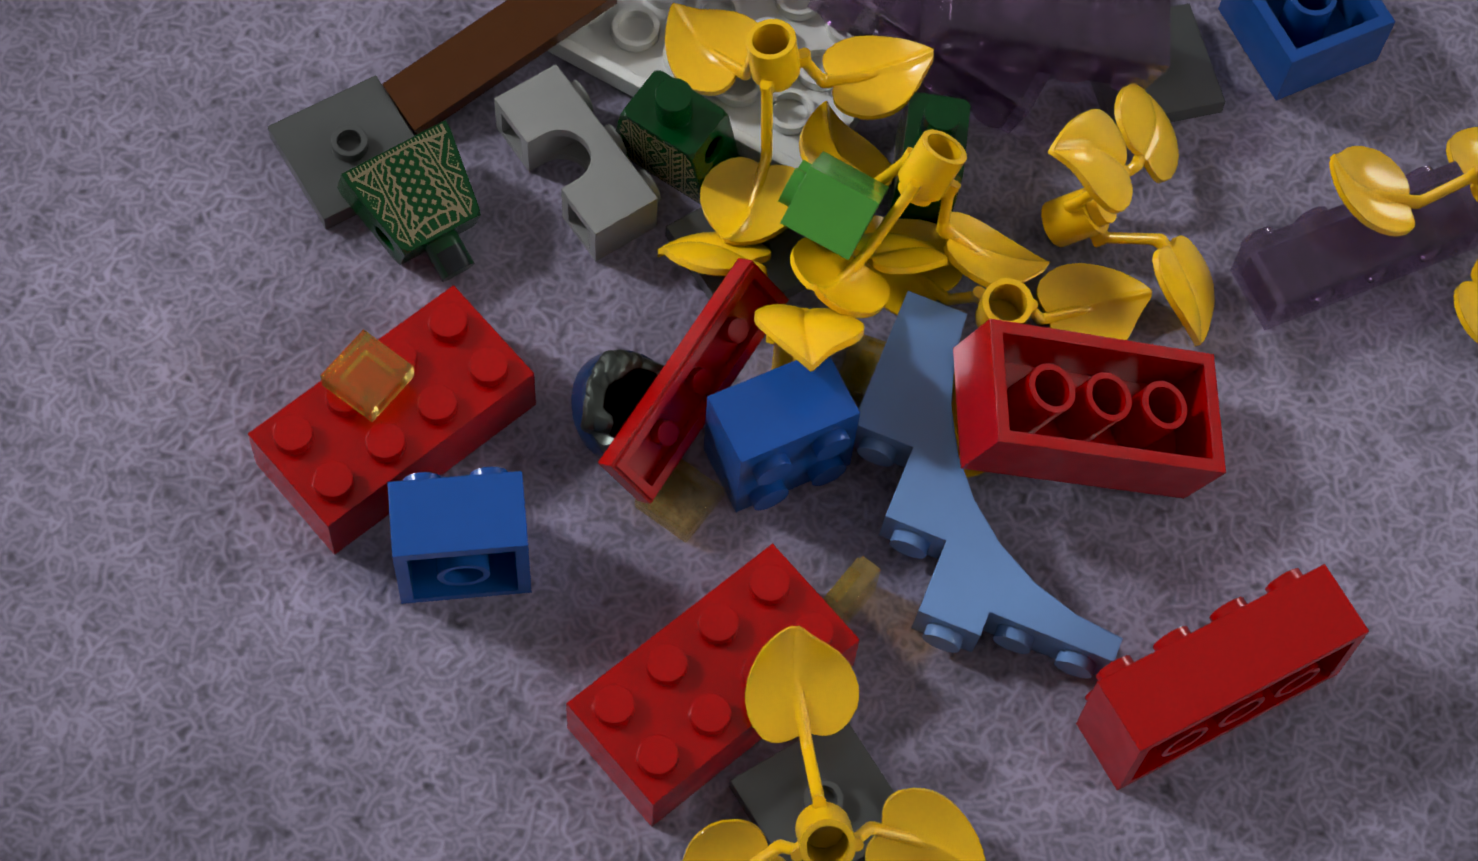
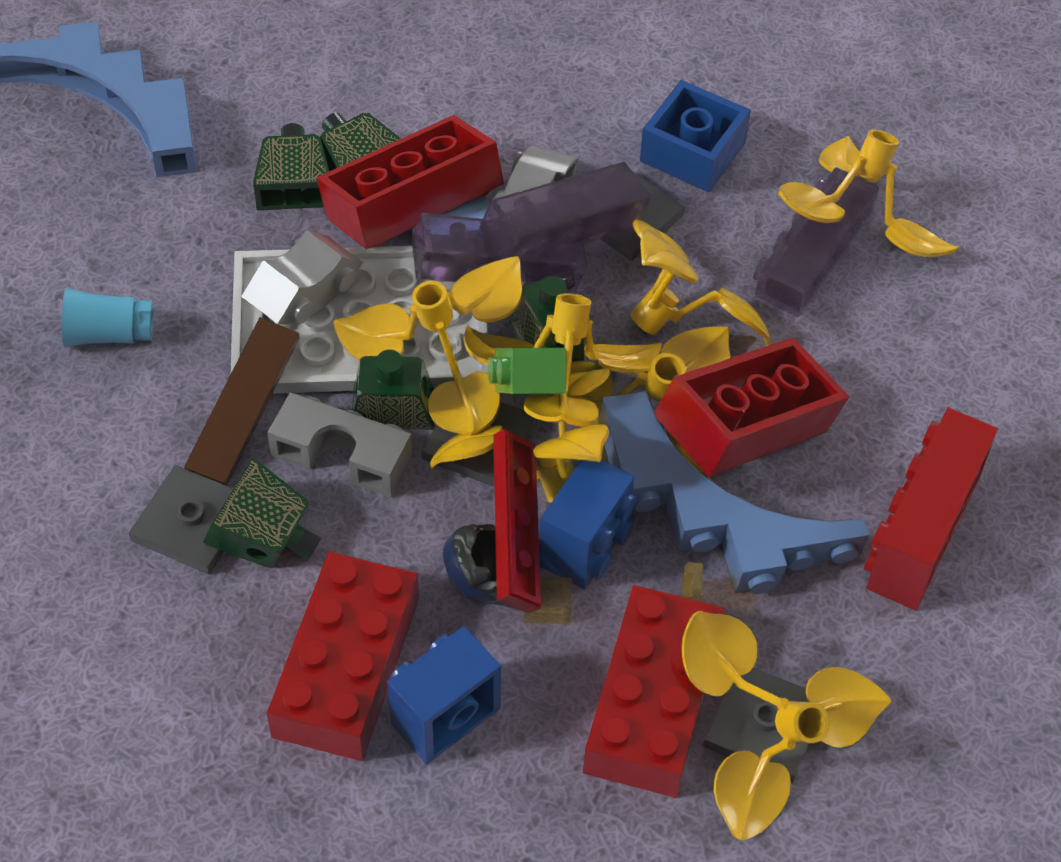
camera: 30 degrees left, 10 degrees down
(367, 375) = (321, 630): clear yellow tile -> none

